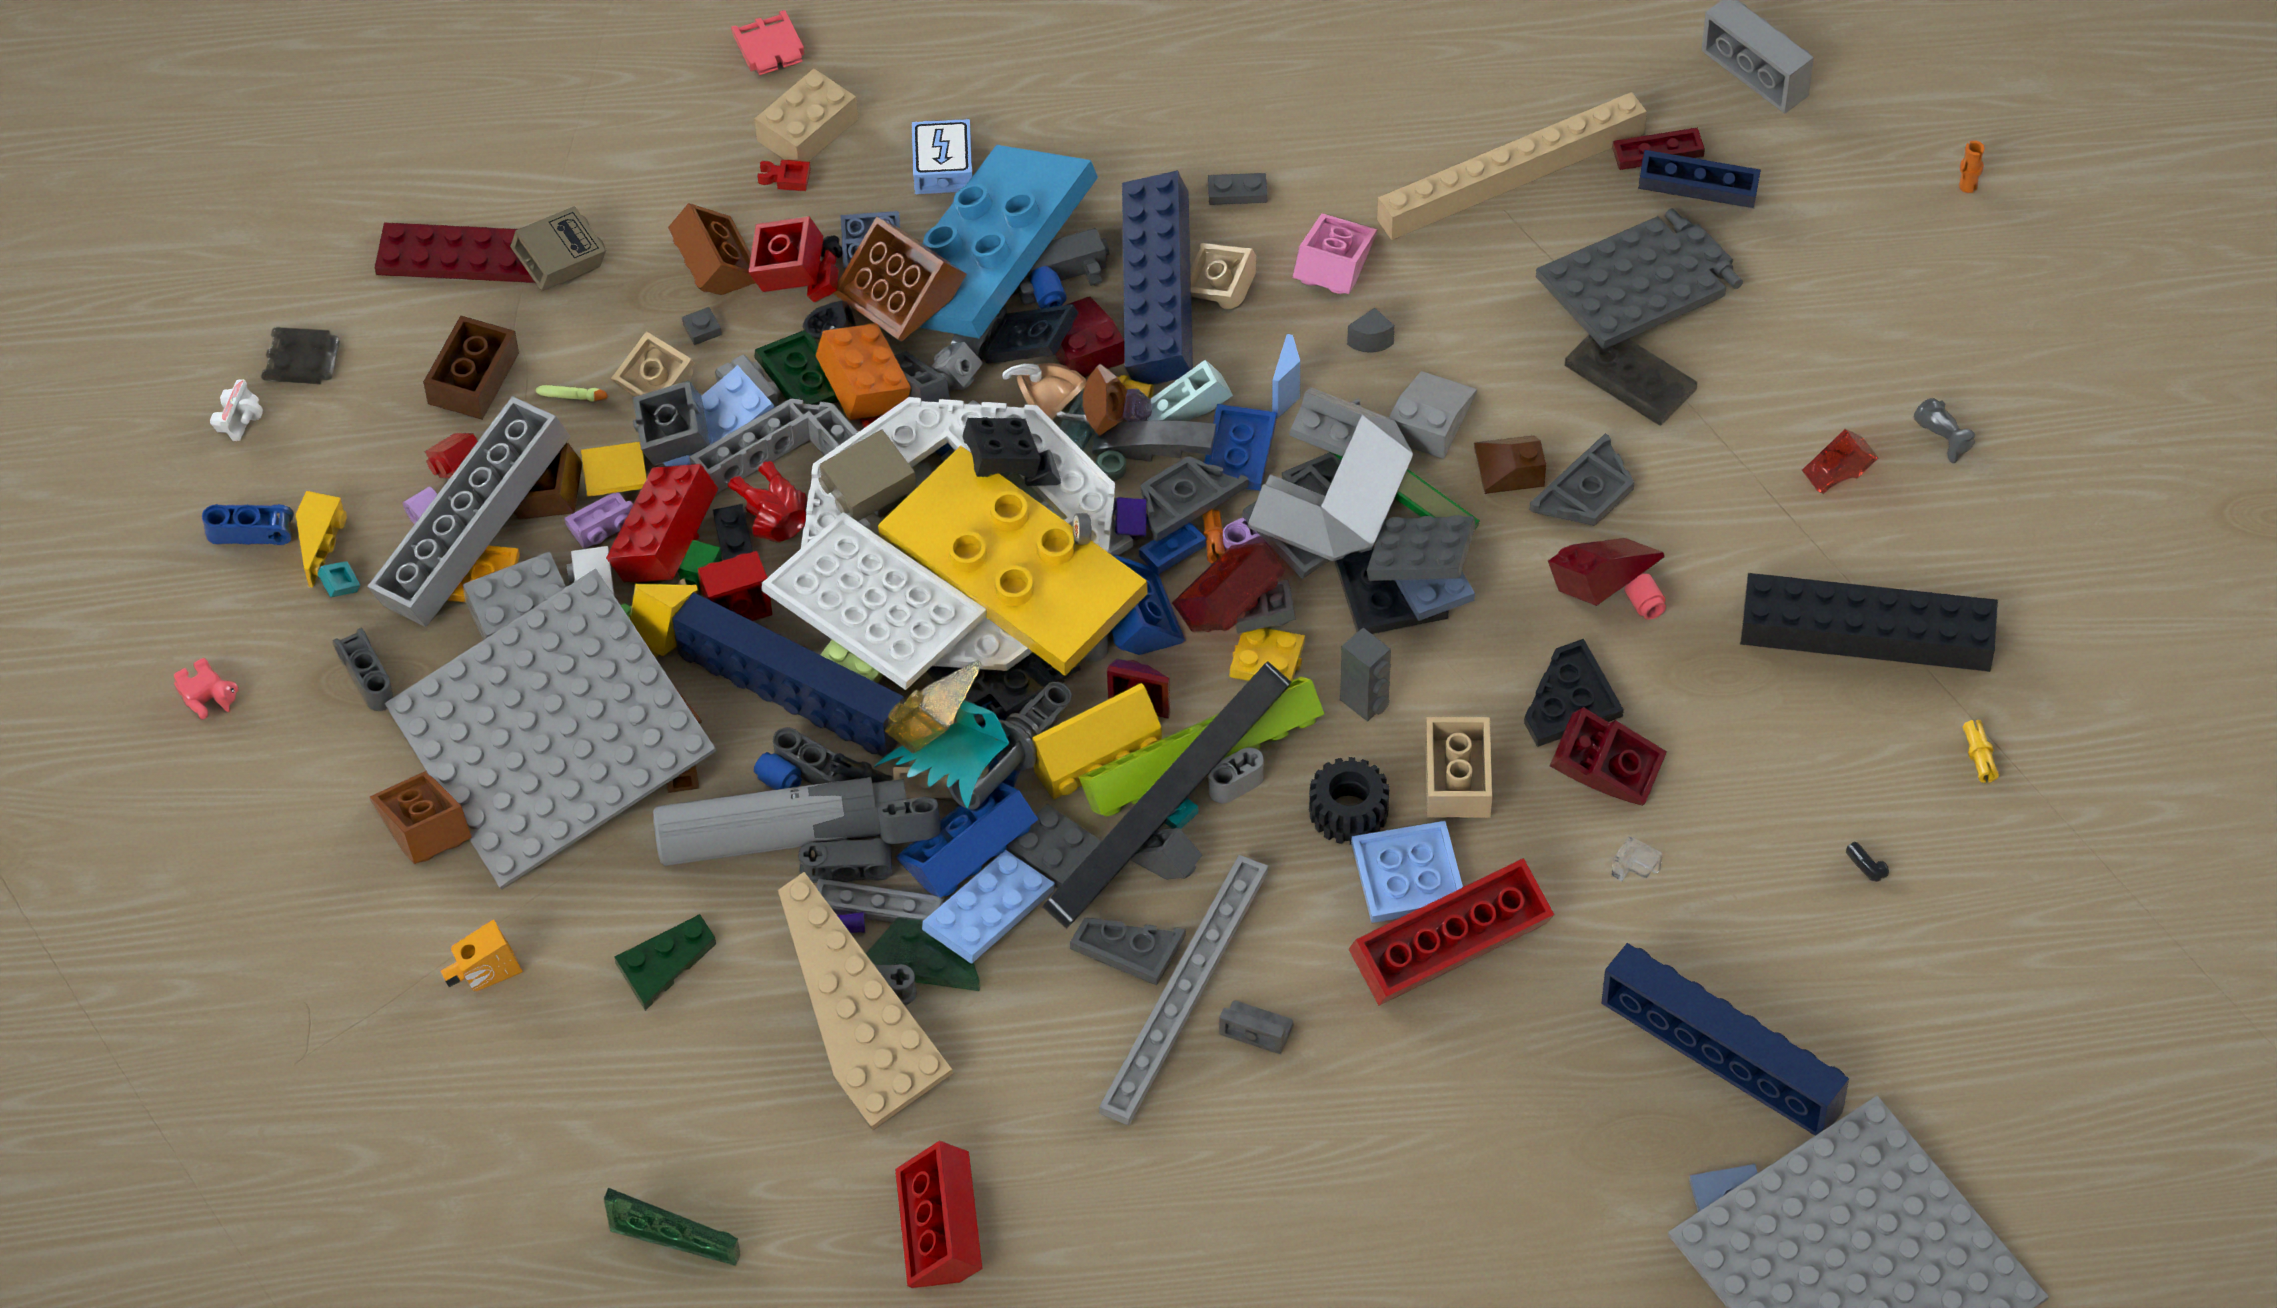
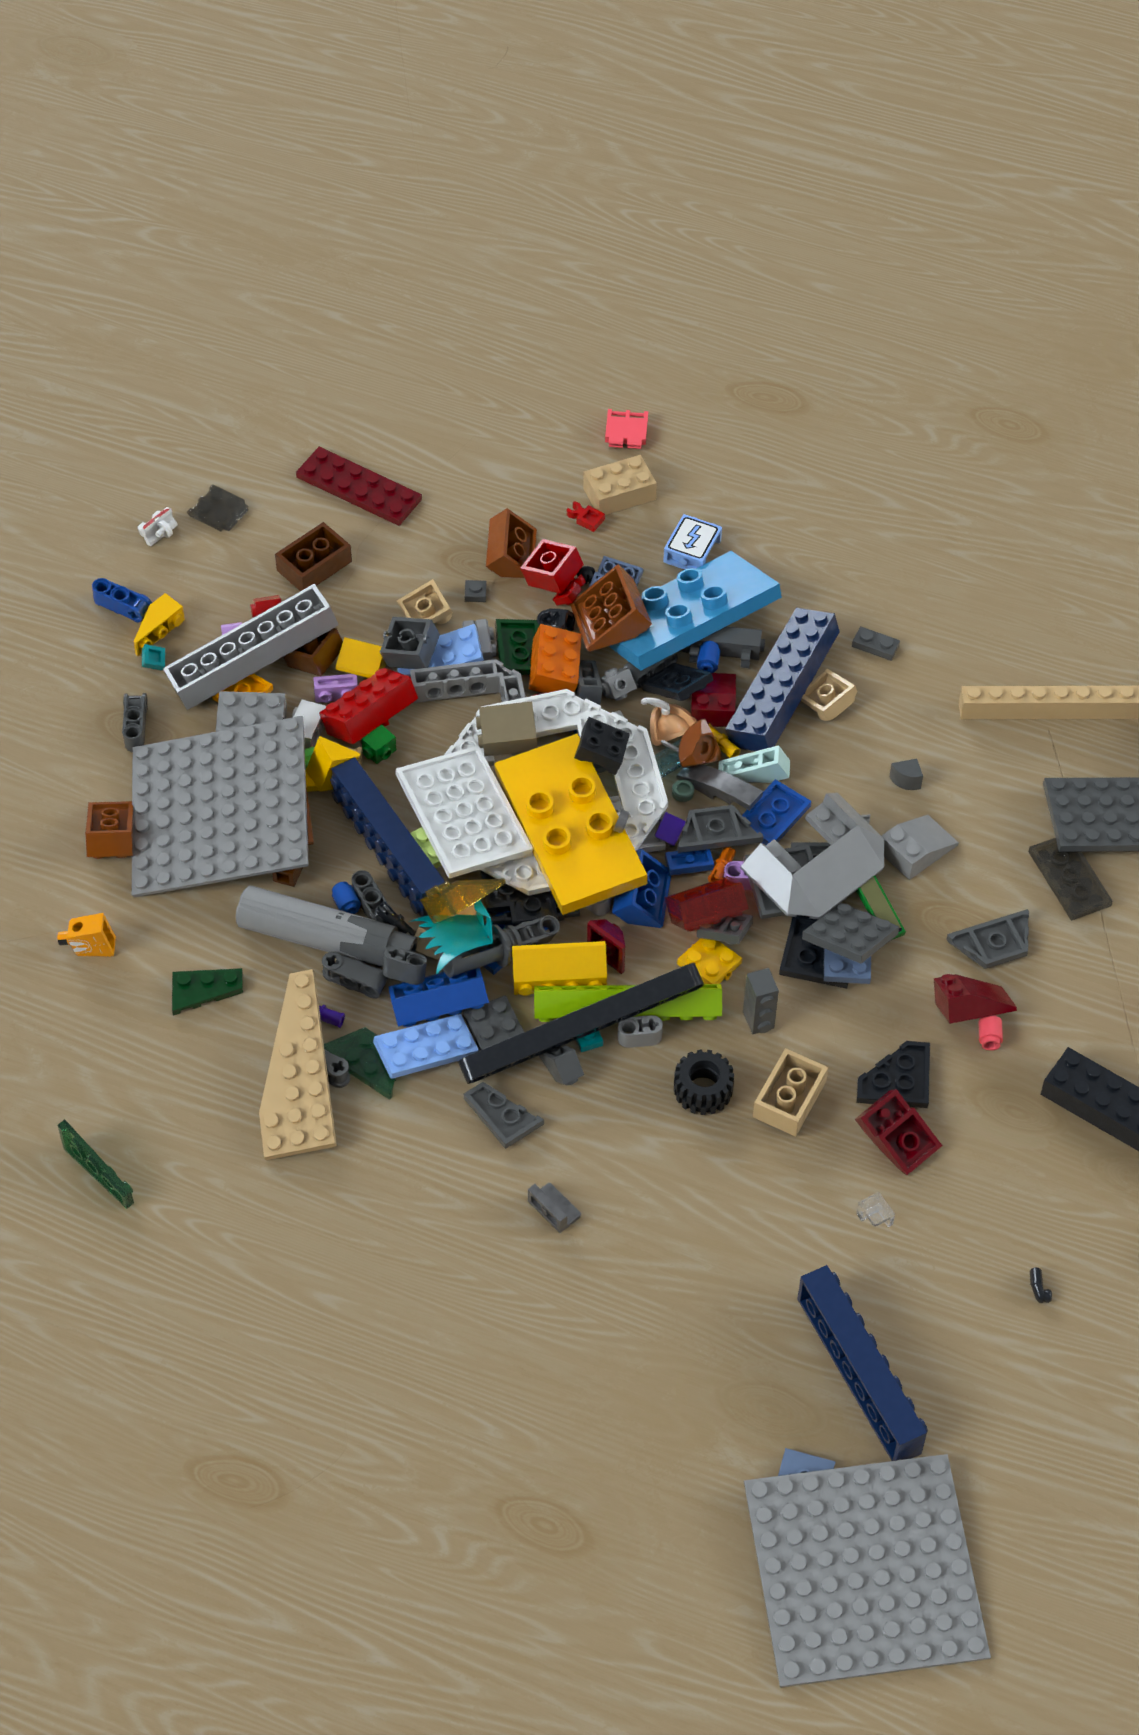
camera: 25 degrees right, 0 degrees up
(203, 687) = (31, 690): coral animal -> none
(558, 248) = (412, 504): dark tan brick -> none
(591, 394) = (380, 606): yellowish green piece -> none
(732, 531) = (411, 739): black plate -> none
(737, 585) = (381, 764): red brick -> none
(778, 510) = (444, 726): red piece -> none
(877, 902) = (355, 1009): light grey tile -> none
(938, 1216) = (270, 1237): red slope -> none
(1047, 472) = (625, 773): black slope -> none
(1137, 406) = (719, 758): clear purple plate -> none
(1183, 990) = (519, 1160): light grey plate -> none
(1286, 378) = (827, 779): light blue slope -> none
(1333, 254) = (913, 711): bright pink slope -> none
(1405, 868) = (717, 1148): light blue plate -> none
(1451, 931) = (717, 1202): red brick -> none
(1511, 464) = (951, 902): reddish brown slope -> none

